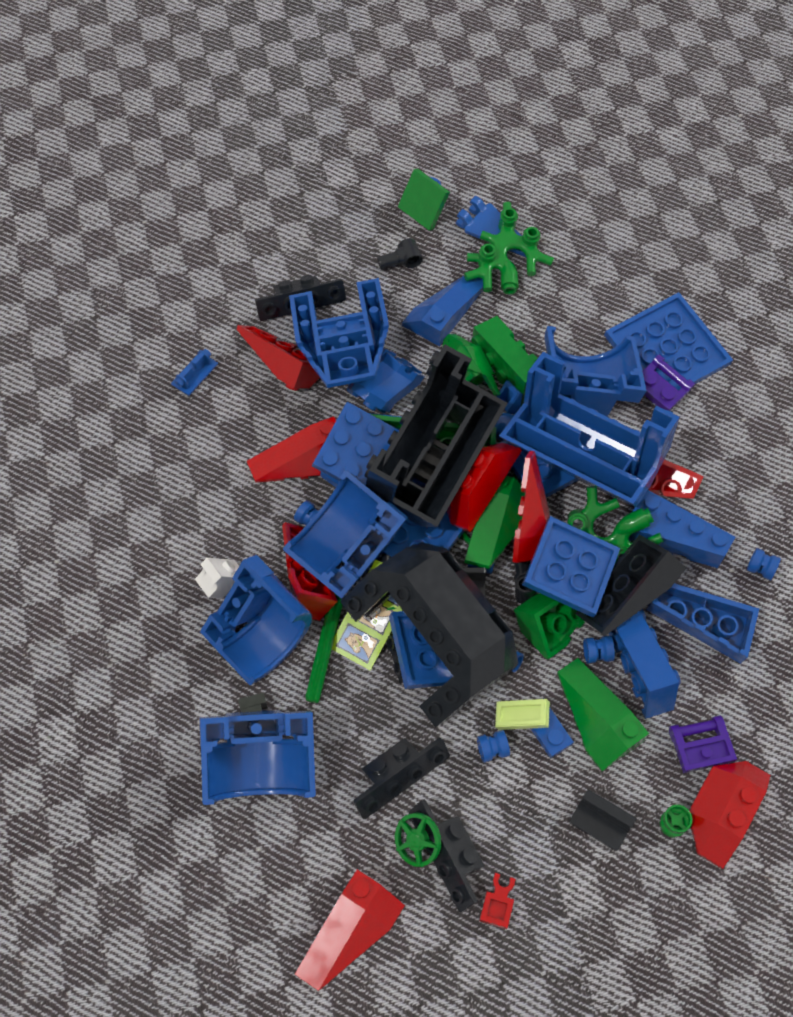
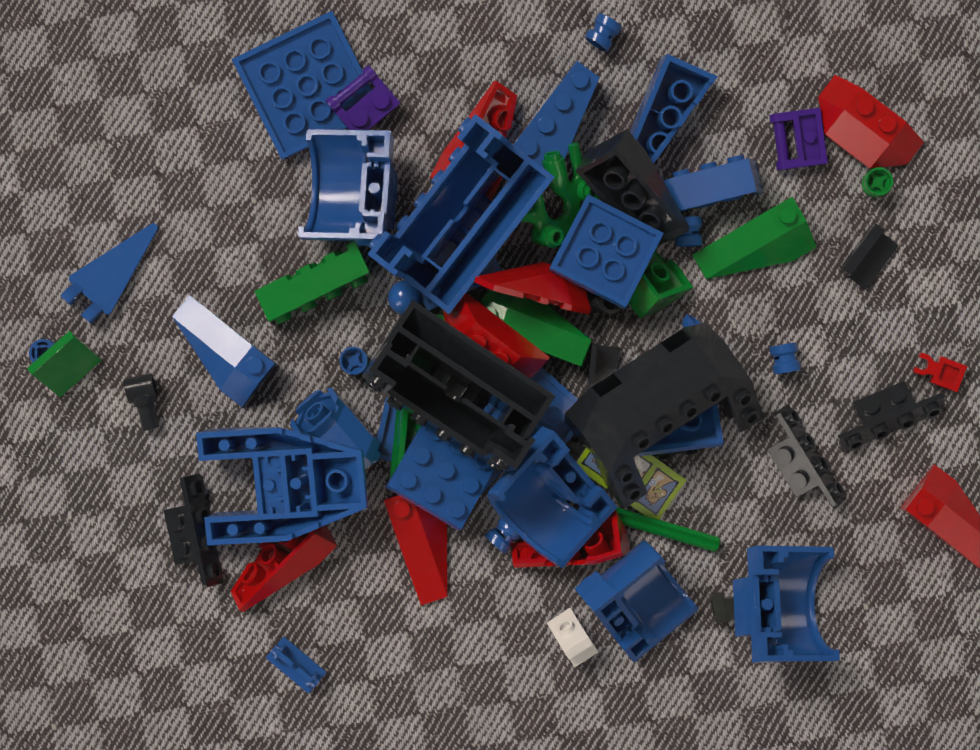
camera: 85 degrees left, 25 degrees up
(417, 839) = (876, 446): green wheel -> none
(479, 367) = (313, 327): green animal -> none
(495, 254) = (136, 268): green plant -> none
(512, 396) = (370, 290): blue slope -> none
(522, 714) = (754, 323): yellowish green tile -> none
(554, 738) = (767, 298): blue plate -> none

